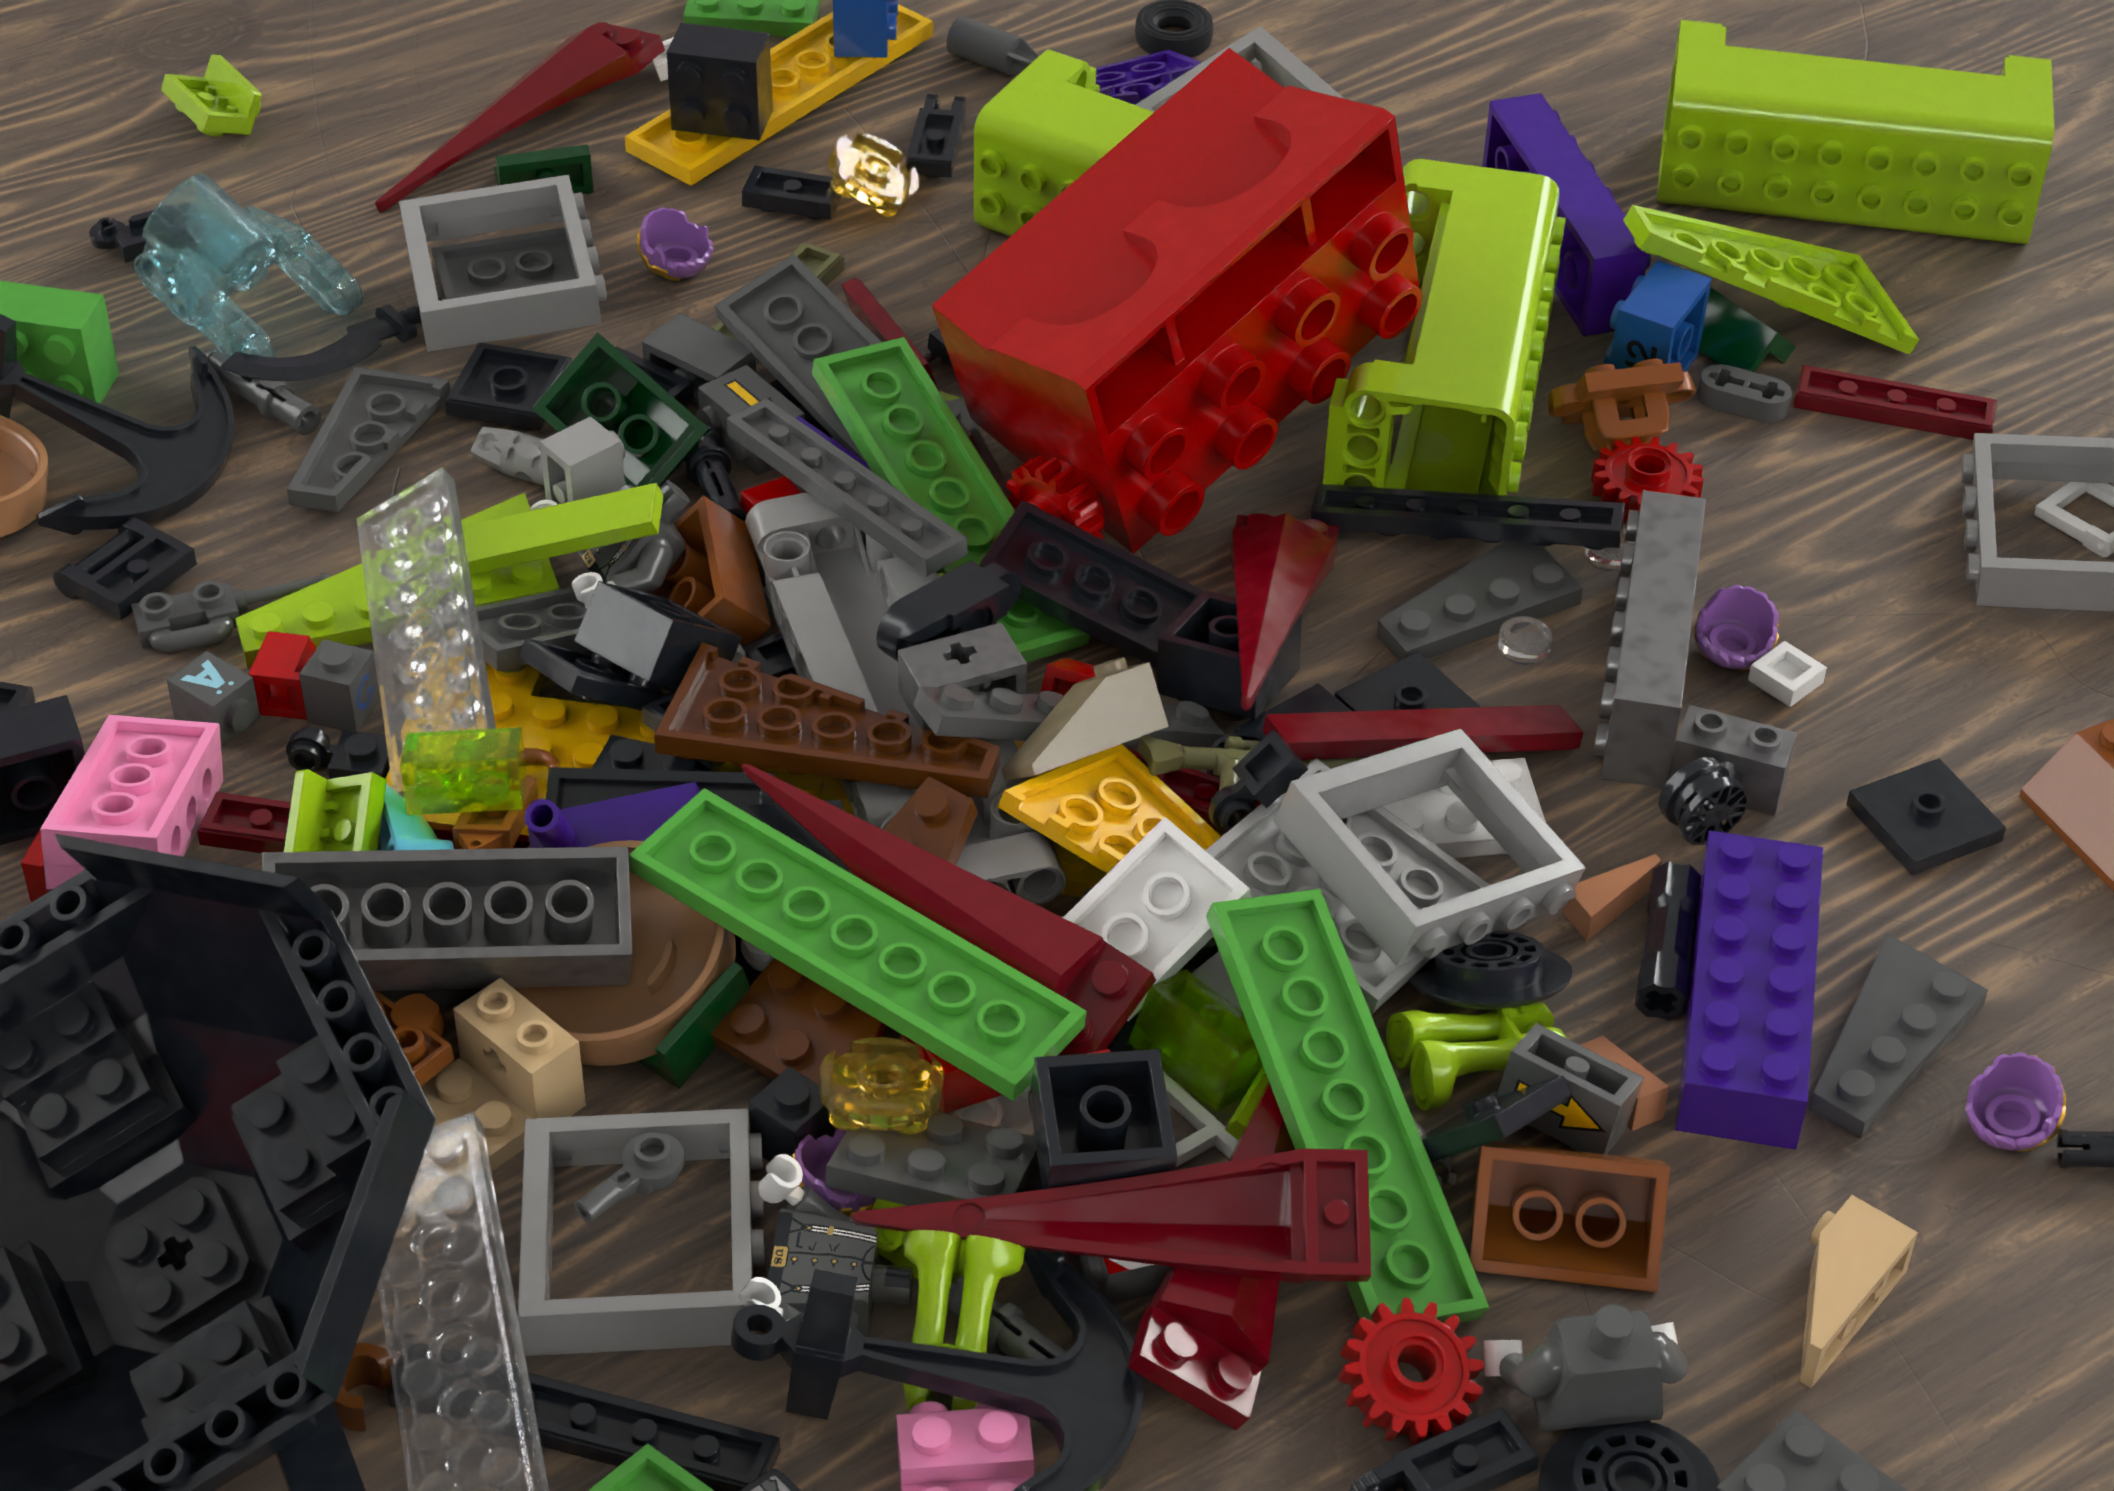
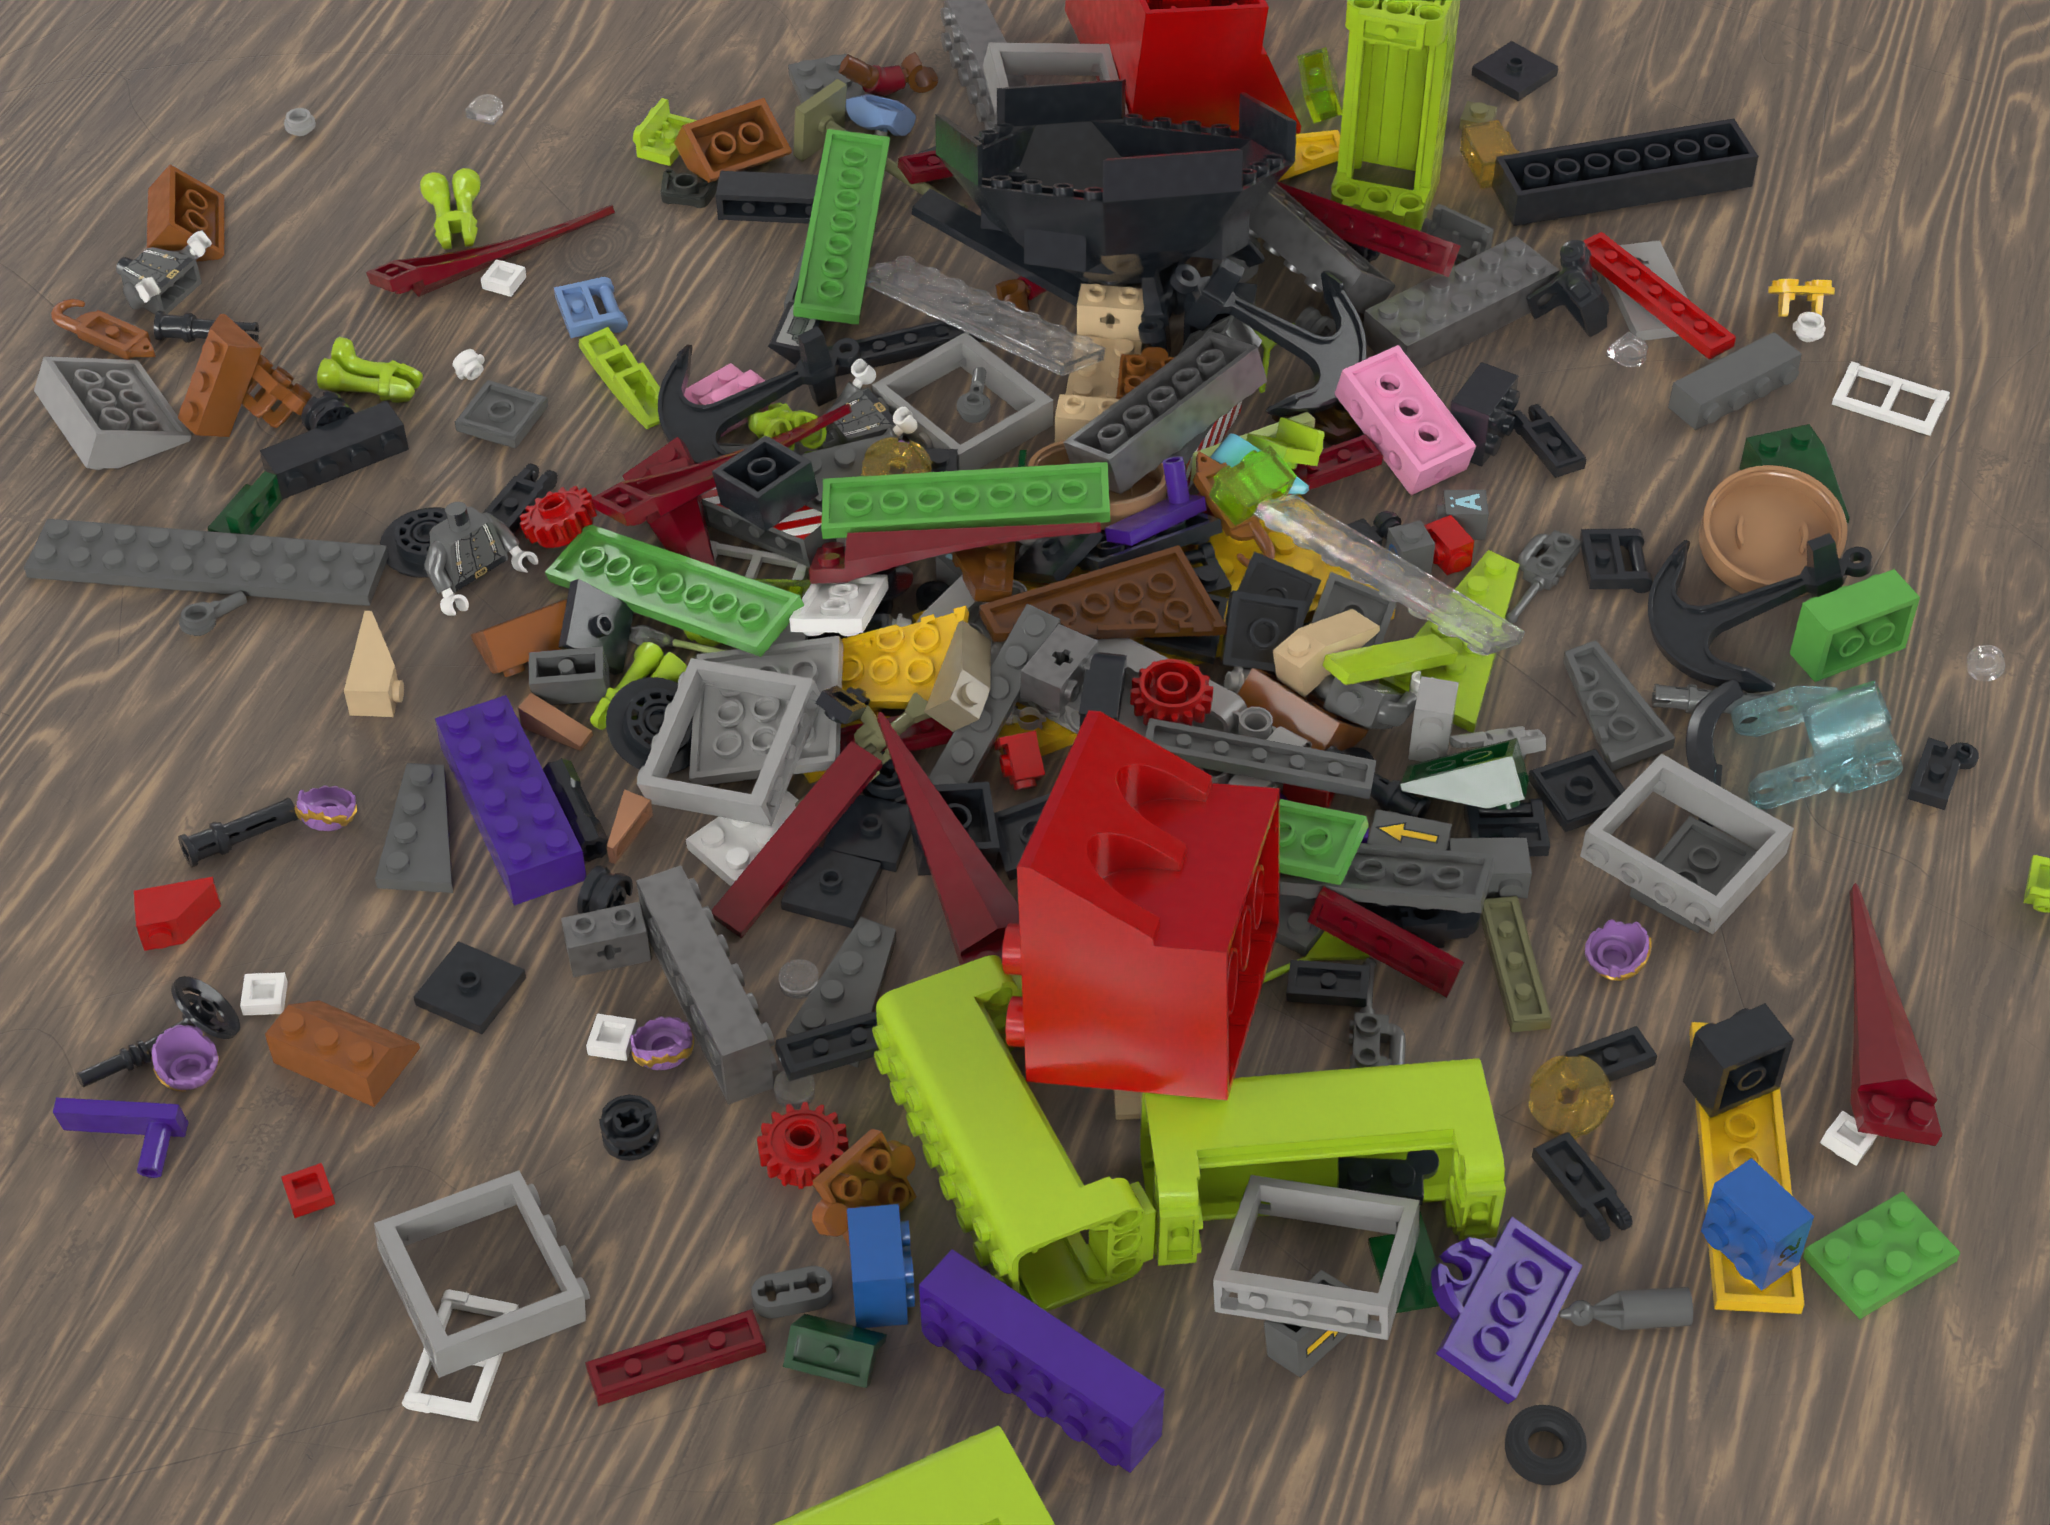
camera: 145 degrees right, 5 degrees up
(546, 164) = (1789, 974): dark green panel -> none
(641, 552) = (1302, 654): none -> tan slope
(861, 580) = (1171, 692): none -> red gear
(1791, 273) = (812, 1391): lime wing -> none
(1823, 580) = (629, 1125): none -> black wheel

